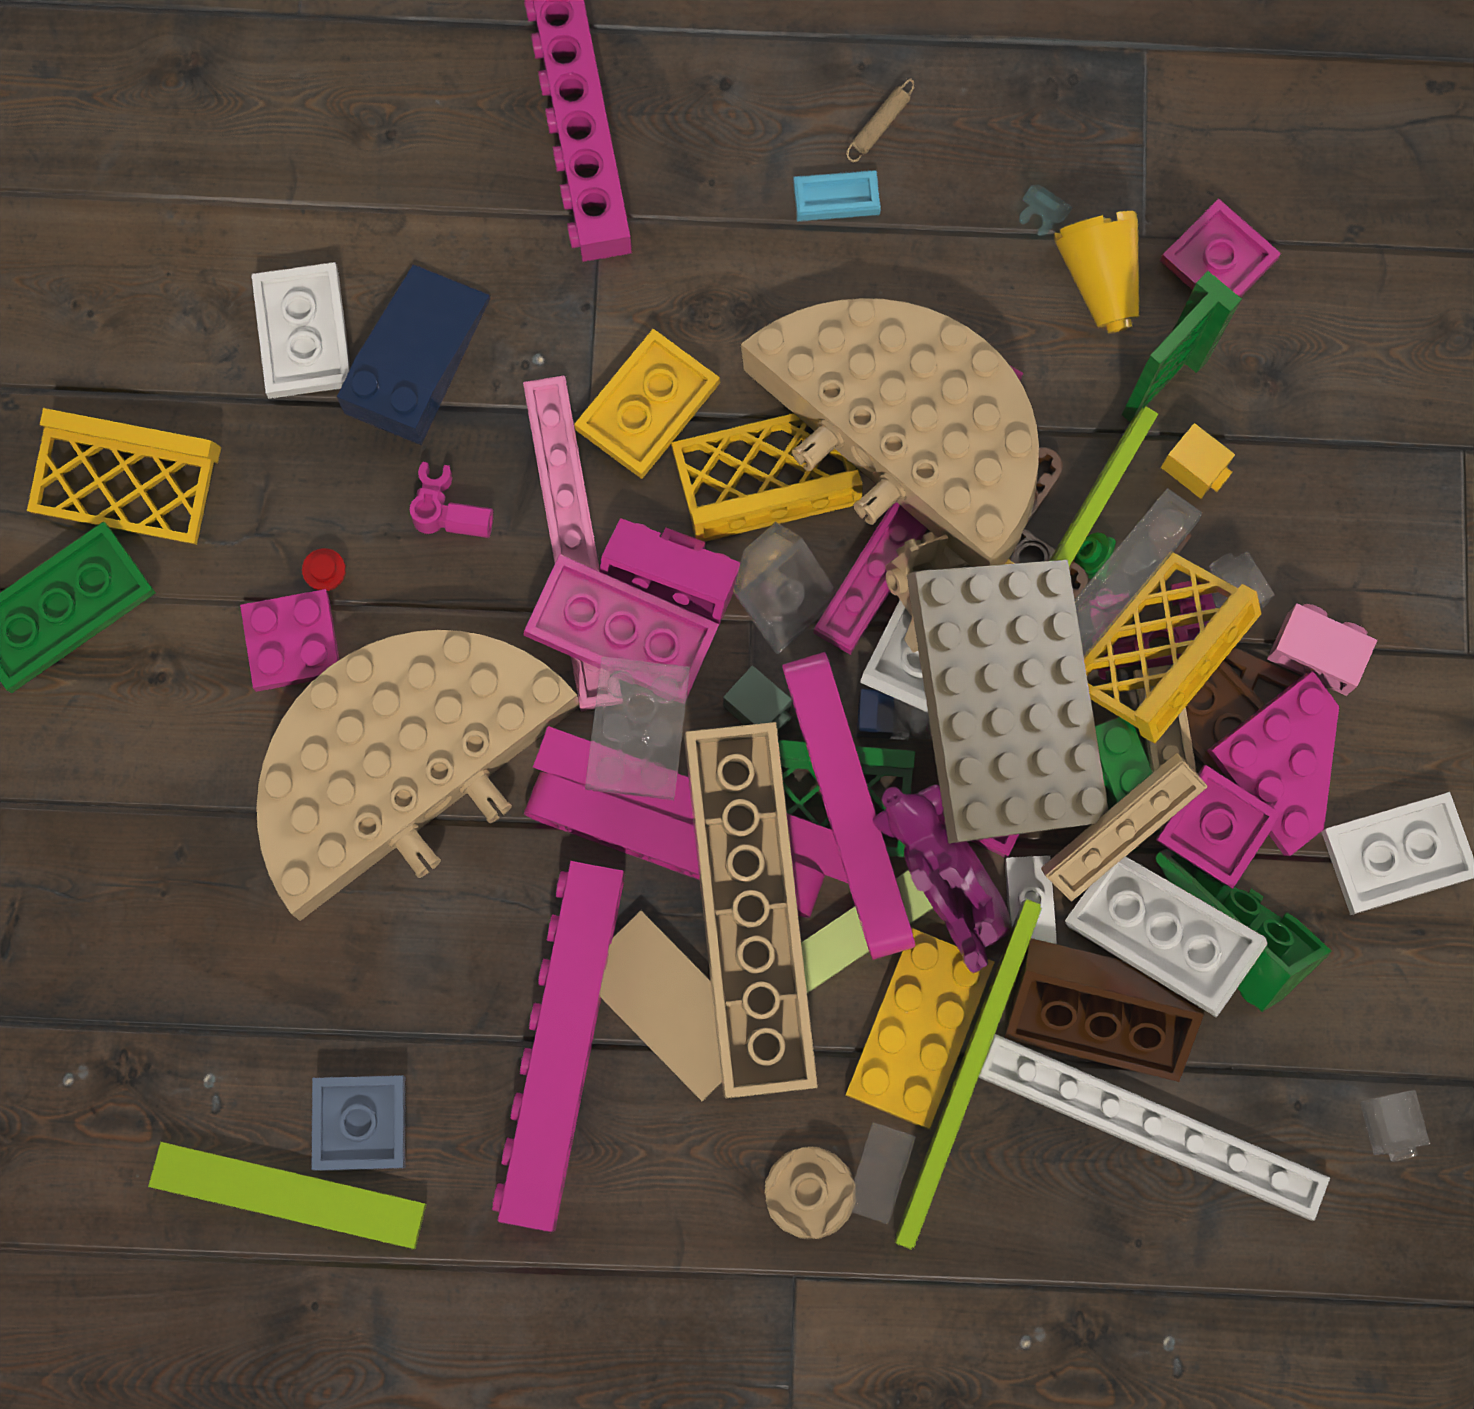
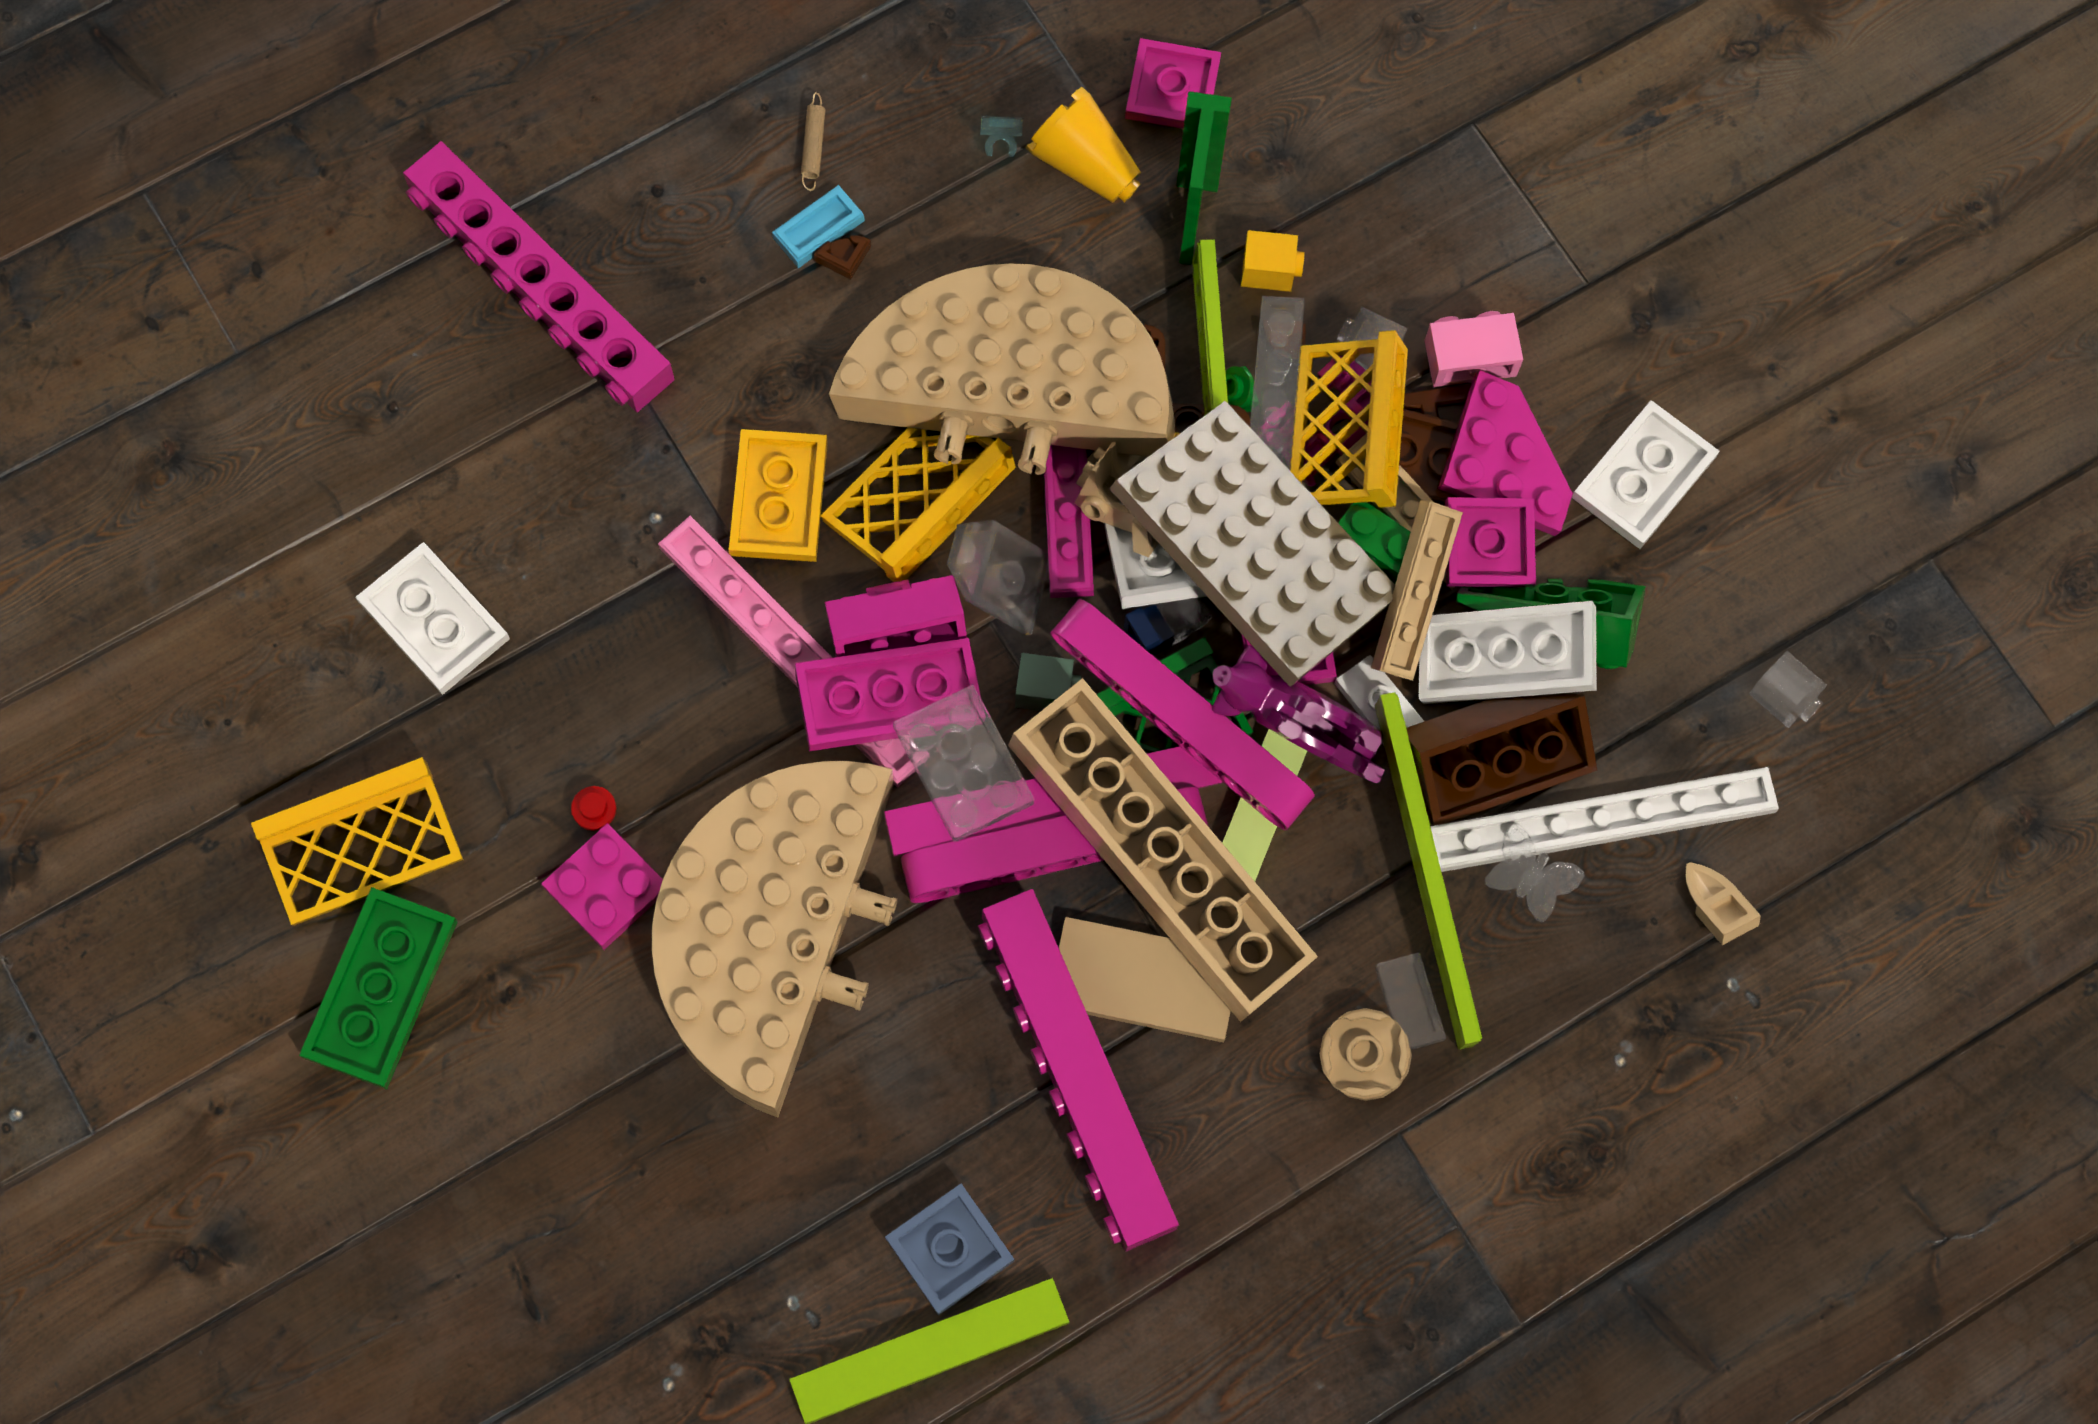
camera: 35 degrees left, 5 degrees down
(412, 354) = (545, 579): dark blue slope -> none
(431, 514) = (655, 702): dark pink bar -> none
(841, 233) = (843, 254): none -> reddish brown tile
(918, 1031) = (1362, 866): yellow plate -> none
(1055, 1136) = (1530, 877): none -> clear piece
(1204, 1267) = (1720, 903): none -> tan plate

